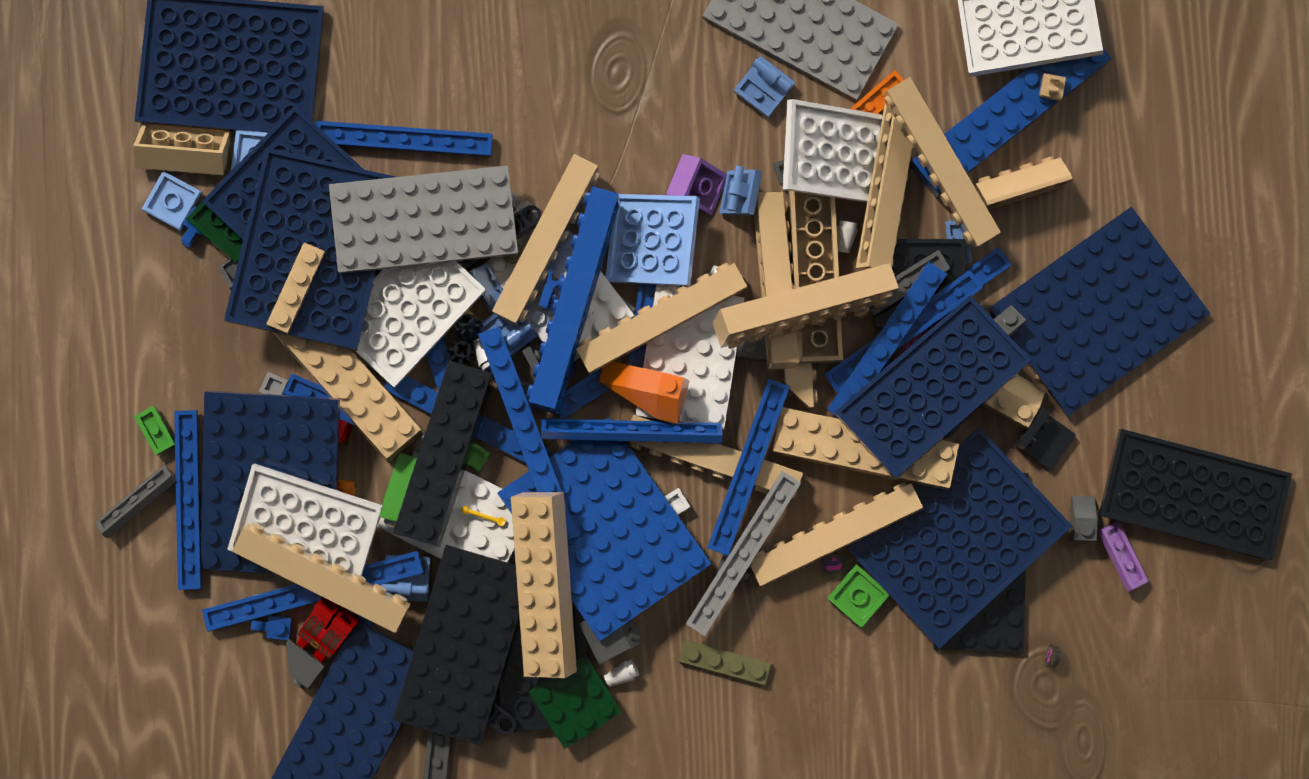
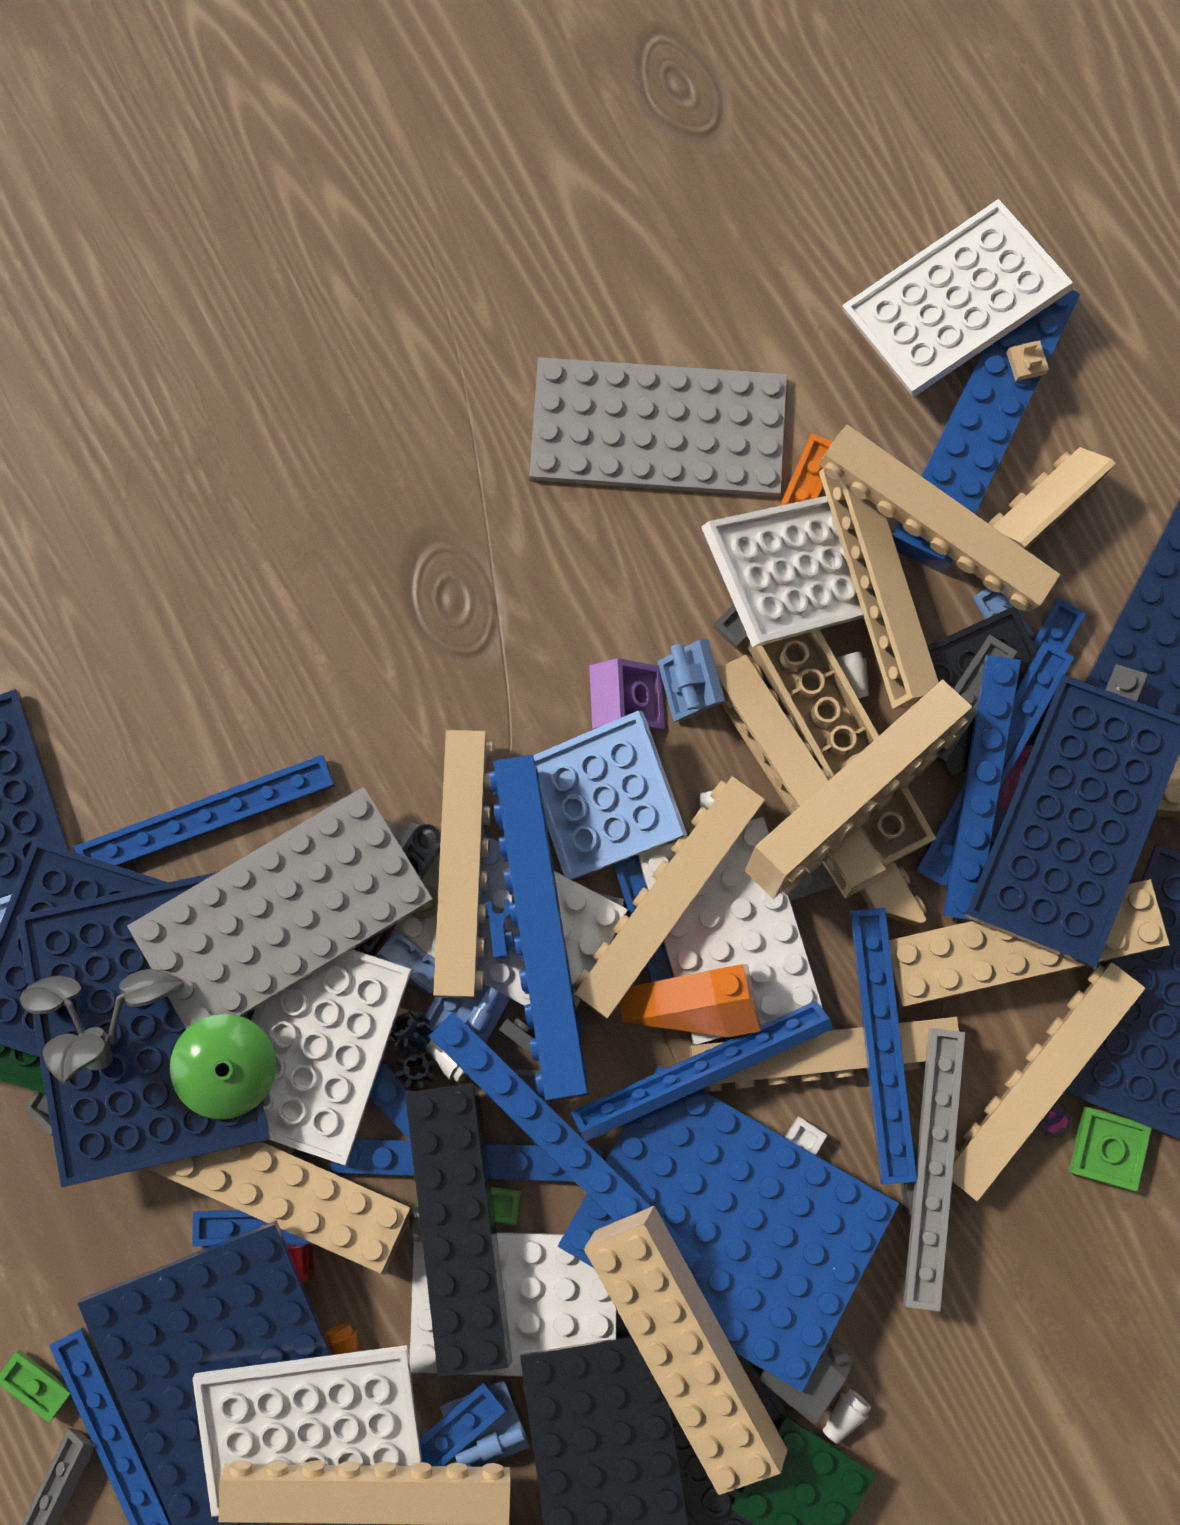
camera: 30 degrees left, 5 degrees down
(273, 384) = (174, 1241): light grey plate -> none
(277, 246) = (91, 1048): none -> dark grey plant
(295, 288) = (144, 1093): tan plate -> none
(353, 277) = (228, 1041): none -> bright green dish
(397, 486) = (414, 1303): bright green tile -> none
(500, 521) = (580, 1284): yellow hinge -> none
(582, 394) = (607, 1050): blue plate -> none
(724, 662) = (976, 1329): olive plate -> none
(764, 86) = (653, 531): medium blue plate -> none

